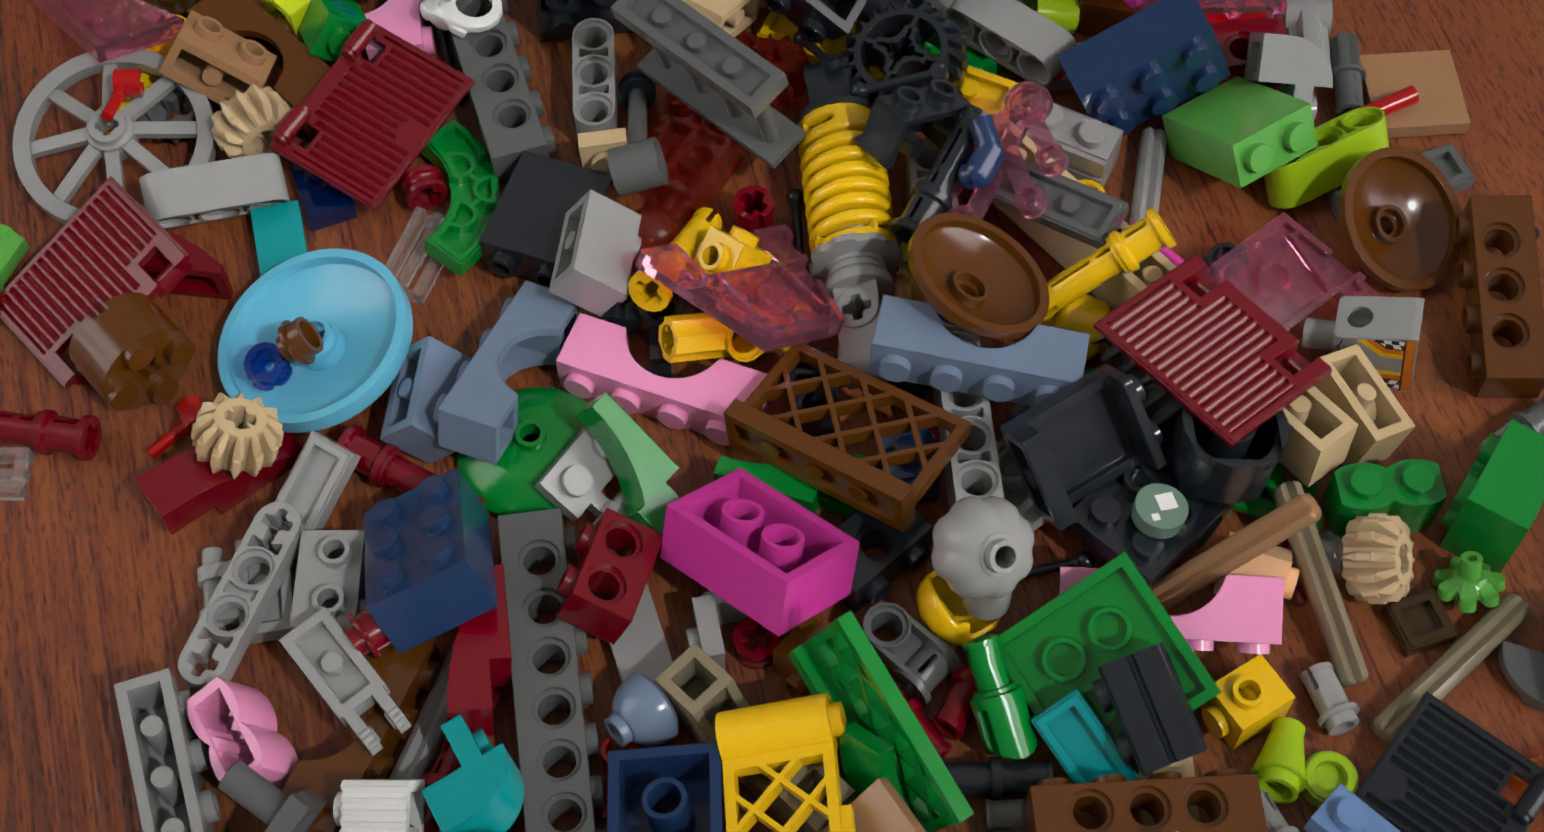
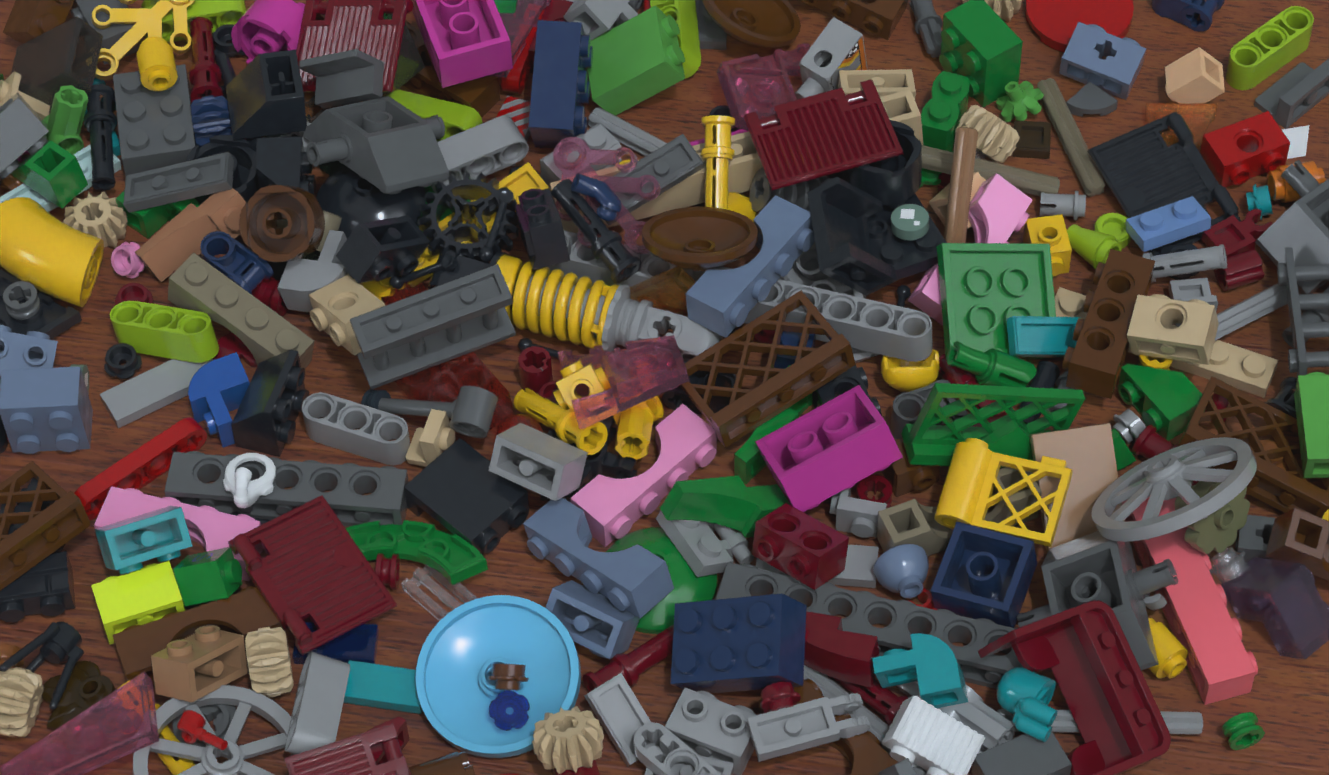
camera: 65 degrees left, 5 degrees down
(982, 547) = (910, 309): light grey plant -> none
(1150, 708) = (1044, 282): black brick -> none

